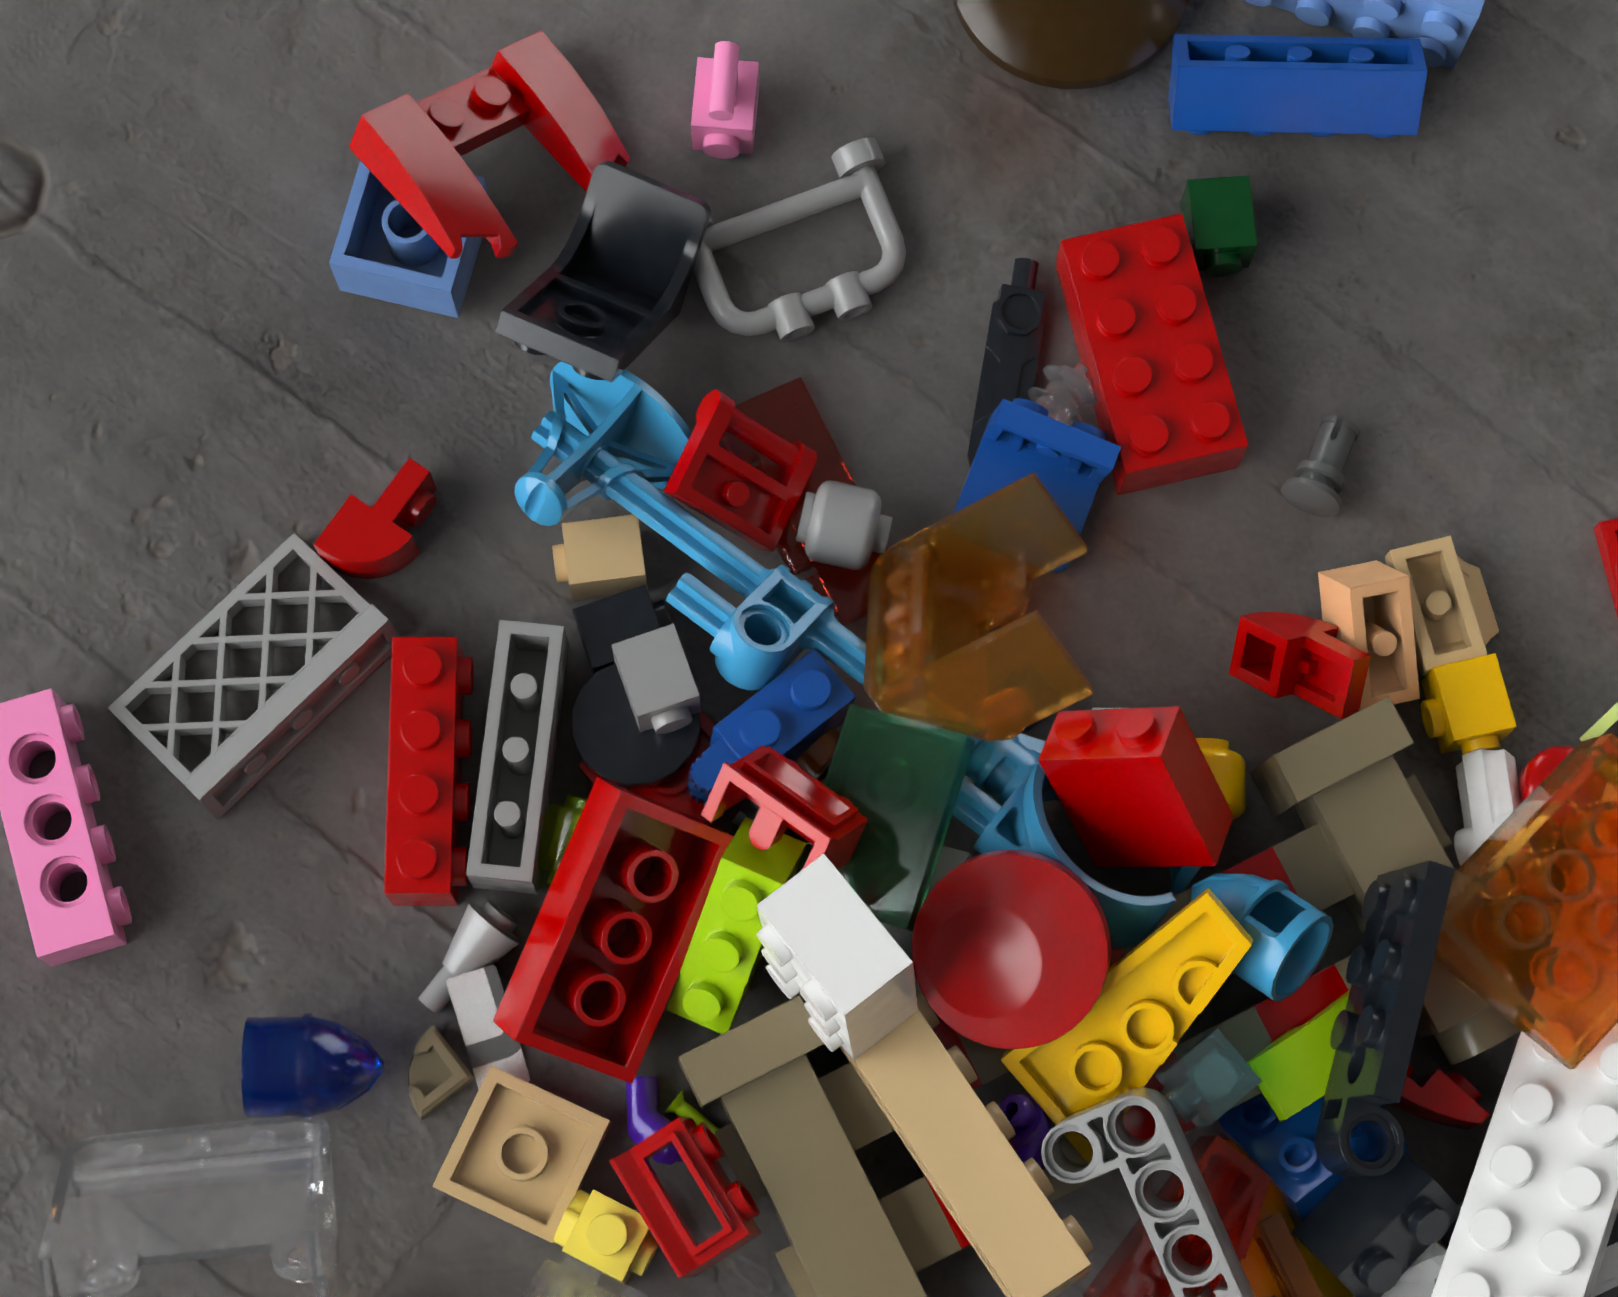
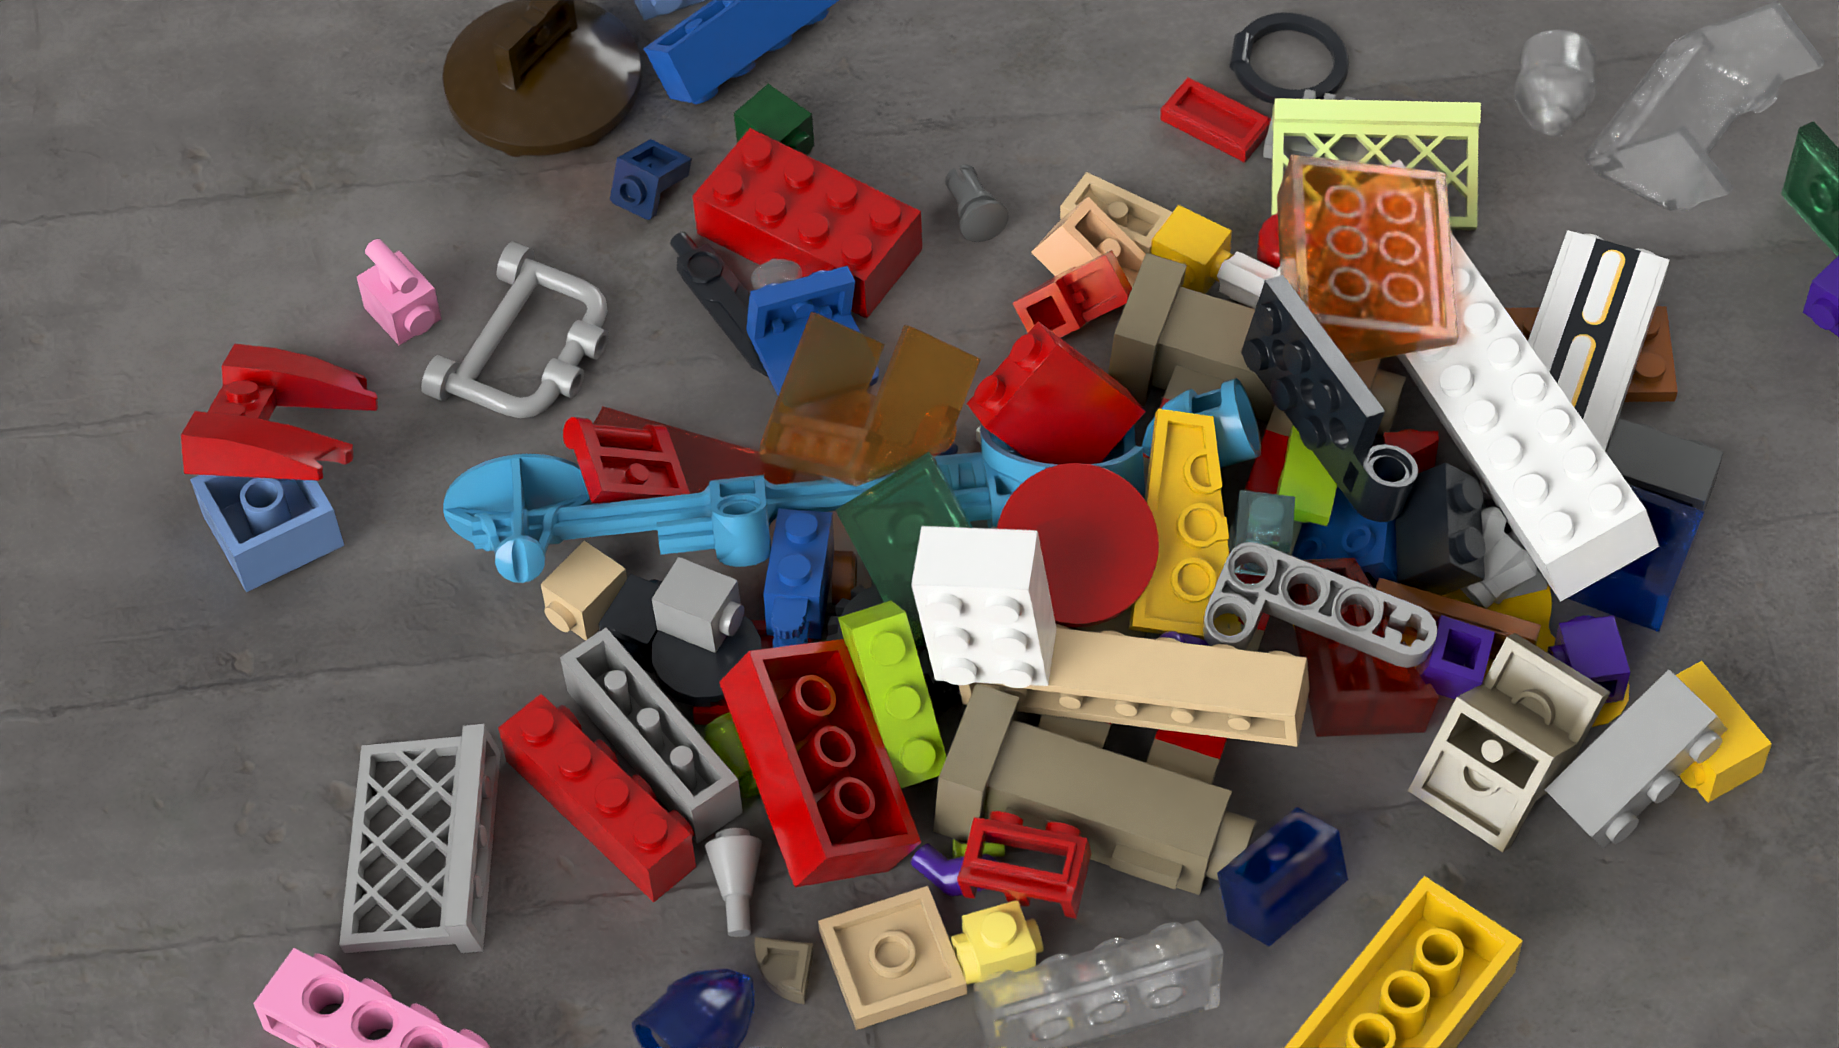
camera: 40 degrees left, 20 degrees down
(375, 540) = (423, 698): red brick -> none
(475, 1003) = (784, 909): clear sticker -> none
(615, 276) = (426, 415): black bracket -> none
(789, 800) = (858, 579): red window -> none
(843, 525) = (720, 447): light grey head -> none
(1061, 169) = (644, 174): none -> dark blue bracket

